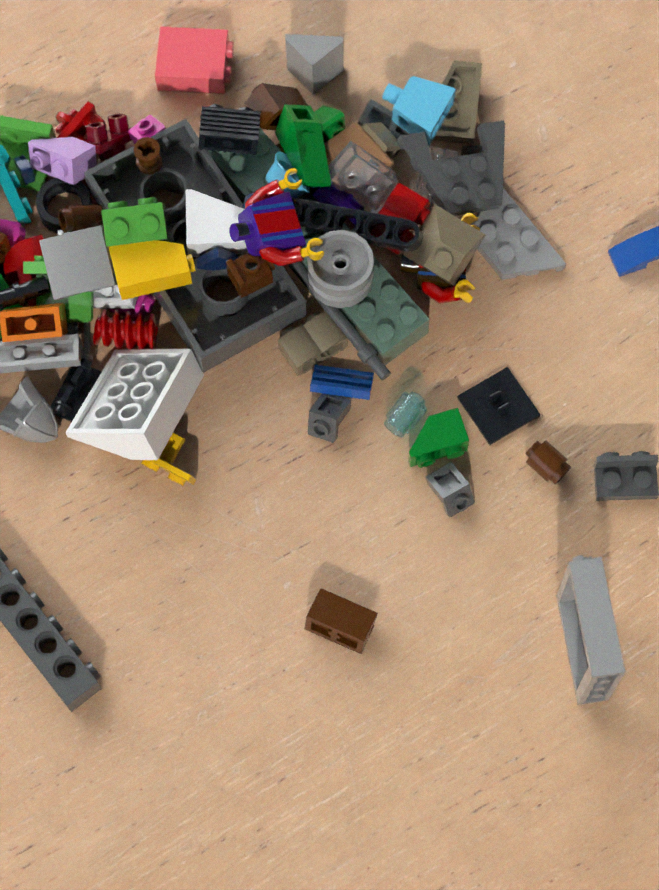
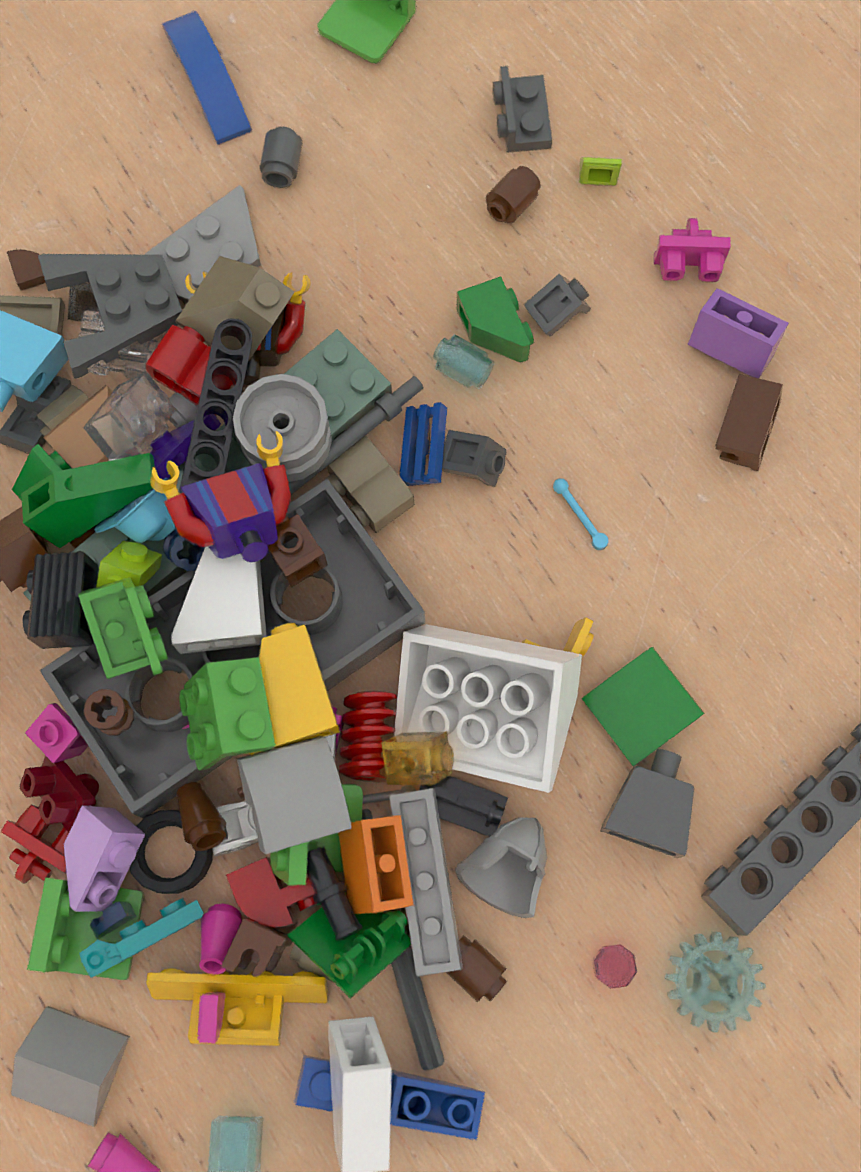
camera: 95 degrees left, 5 degrees up
(53, 516) = (653, 807): none -> dark grey torso
(104, 356) = (417, 758): none -> clear yellow brick
(128, 519) = (643, 706): none -> green slope
(200, 162) = (120, 630): none -> bright green bracket
(215, 259) = (275, 597): dark blue tile -> none
(245, 168) = (131, 561): none -> lime bracket
(258, 504) = (599, 540): none -> medium azure hinge
(412, 615) = (737, 338): none -> medium lavender brick
(484, 607) = (691, 248): none -> dark pink hips
(498, 406) = (437, 260): black piece -> none
(508, 114) = (26, 268): none -> reddish brown tile
(572, 532) = (599, 171): none -> lime slope
(588, 292) = (280, 157): none -> dark grey brick
(589, 630) = (813, 62): light grey window -> none

